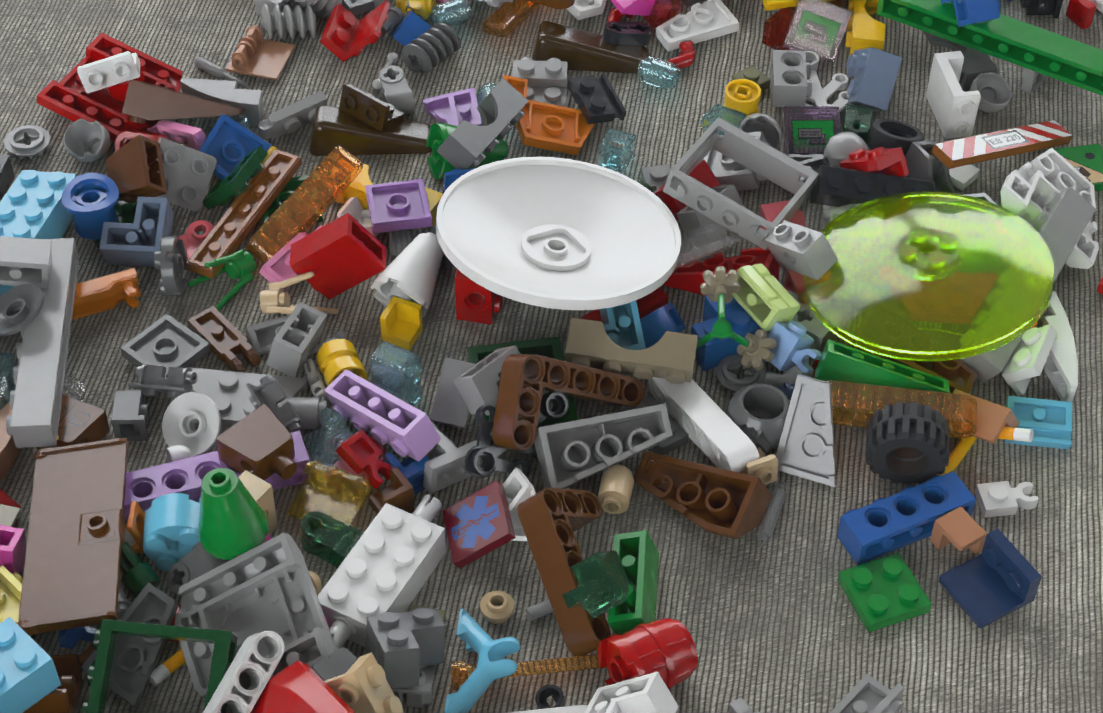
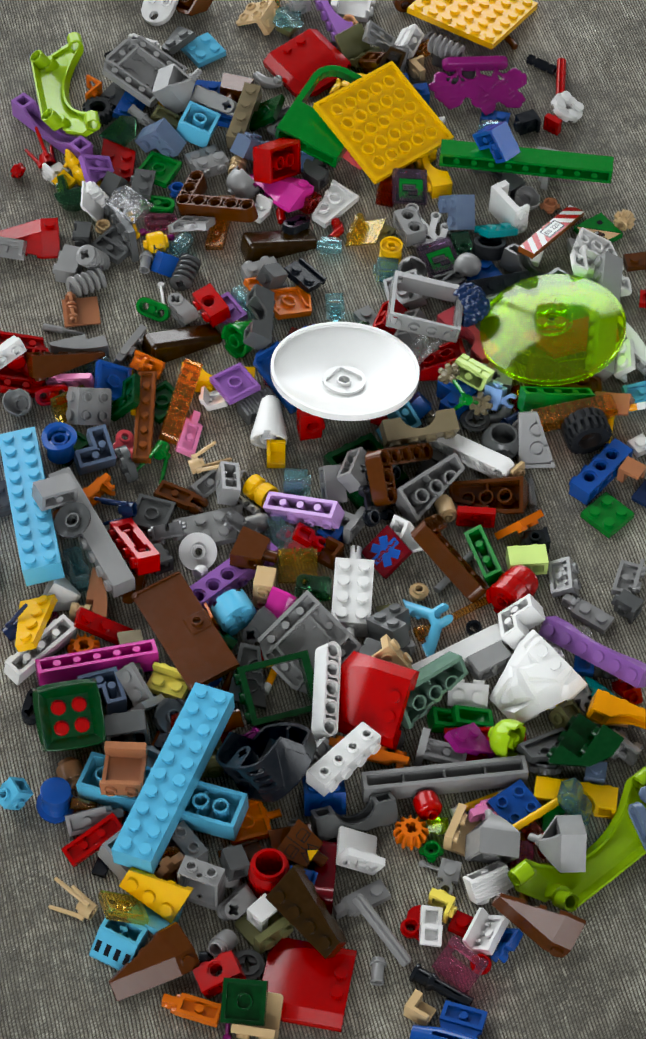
camera: 25 degrees left, 5 degrees up
(83, 403) = (133, 546): none -> red brick
(124, 326) = (125, 508): none -> dark blue plant
(137, 170) = (73, 411): reddish brown torso -> none
(229, 516) = (272, 592): green cone -> none
(298, 143) = (145, 362): none -> orange hips
(338, 256) = (224, 426): red brick -> none
(347, 35) = (134, 277): red bracket -> none
(361, 79) = (154, 309): none -> green plate
(369, 109) = (176, 326): dark brown bracket -> none
(435, 96) = (211, 305): none -> red brick
(543, 82) = (272, 276): none -> dark grey brick
(600, 583) = (474, 560): clear green brick -> none
(659, 519) = (475, 516): none -> red bracket
(706, 615) = (531, 556): none -> yellowish green brick
(717, 67) = (364, 231): none -> clear yellow hinge
(722, 555) = (520, 525): none -> orange wing
(735, 593) = (536, 537): none -> black brick
(753, 669) = (564, 577): none -> light grey bracket
(801, 249) = (480, 337): light grey brick -> none
(815, 196) = (474, 303): none -> dark blue hair
(878, 160) = (491, 268): red bracket -> none
(912, 118) = (496, 230): none -> teal plate
(1023, 112) = (550, 205): none -> nougat plate

